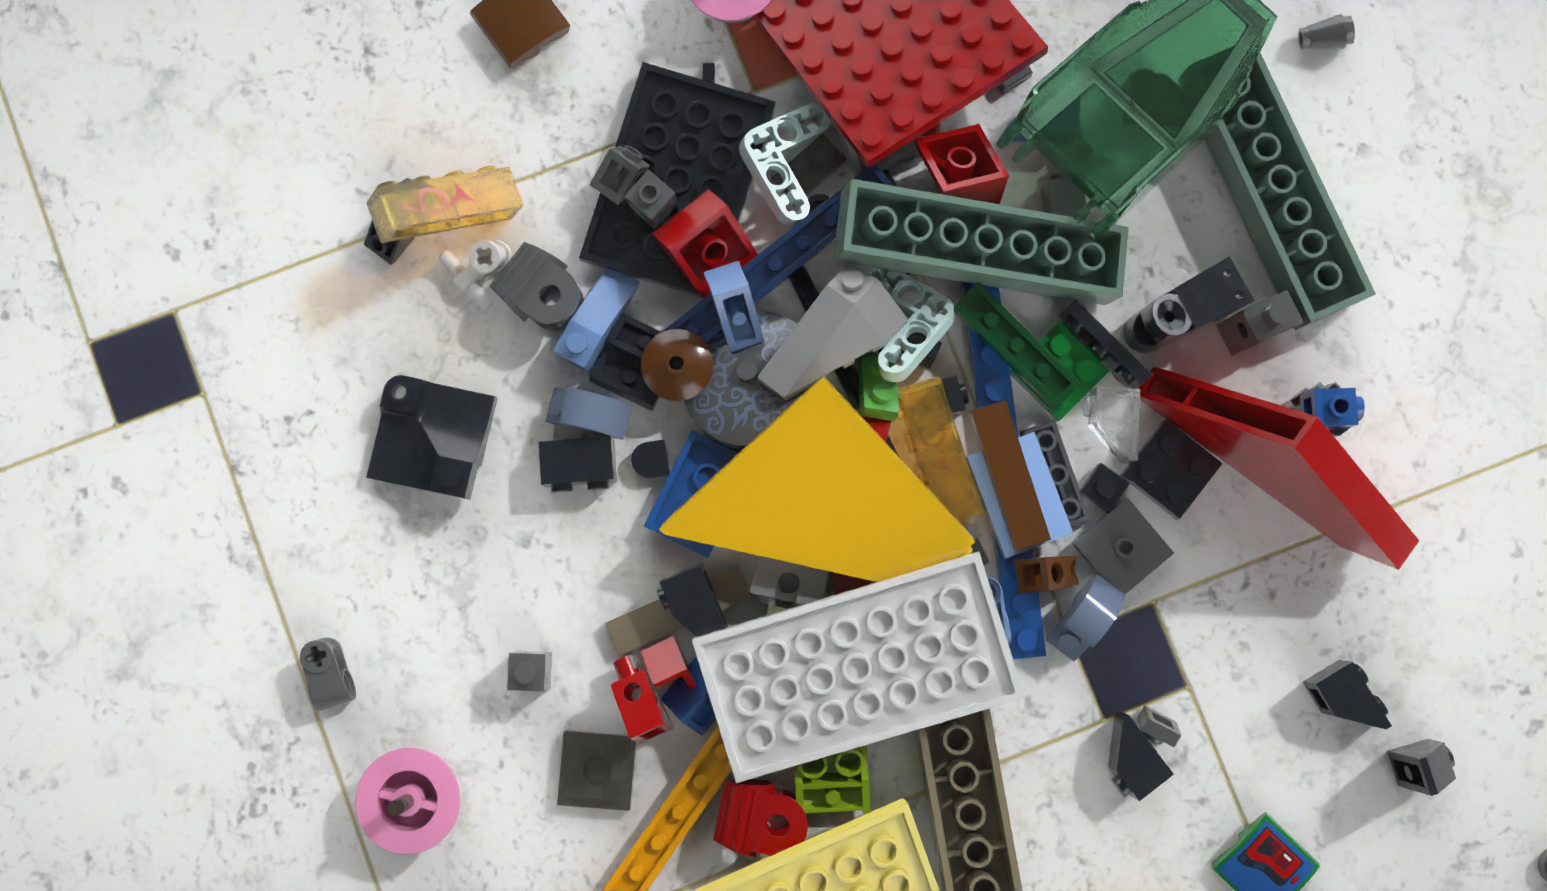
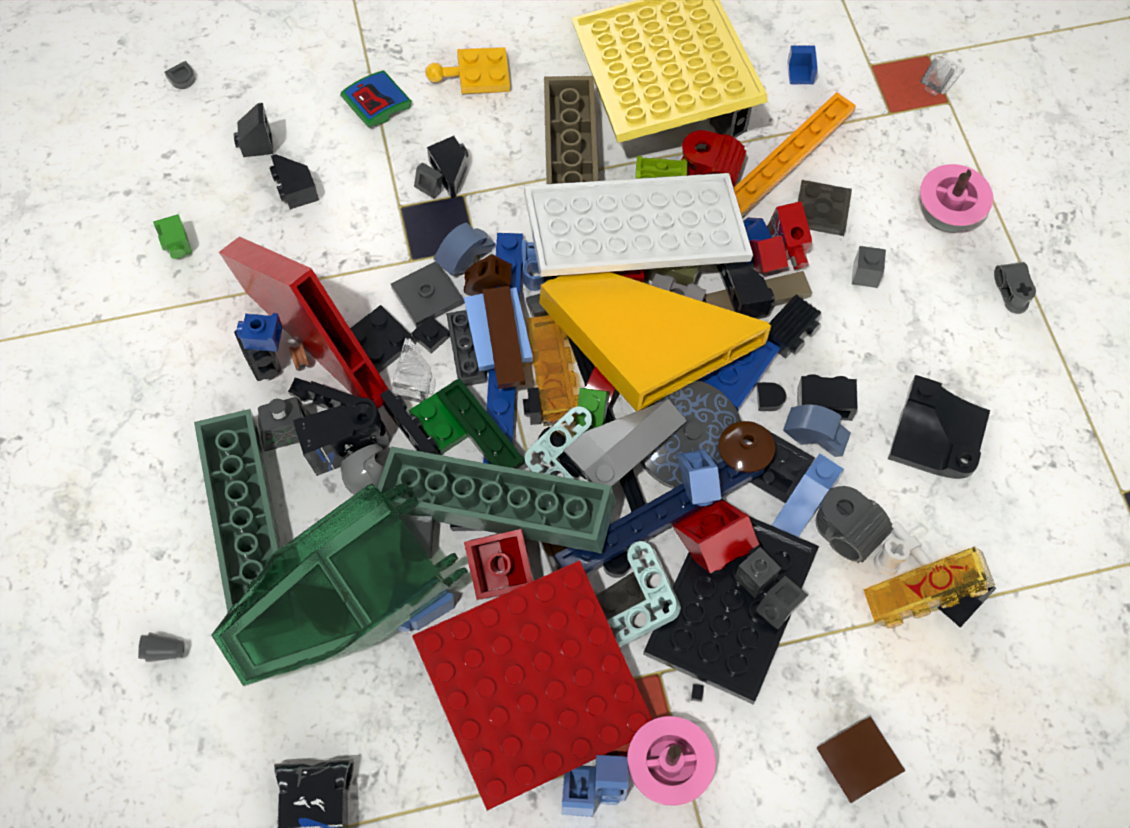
camera: 170 degrees left, 20 degrees down
(629, 562) = (792, 325): none -> black brick
(1153, 268) = (361, 468): none -> light grey helmet
(1217, 371) = (320, 394): none -> black hinge
(1484, 580) = (173, 236): none -> bright green brick

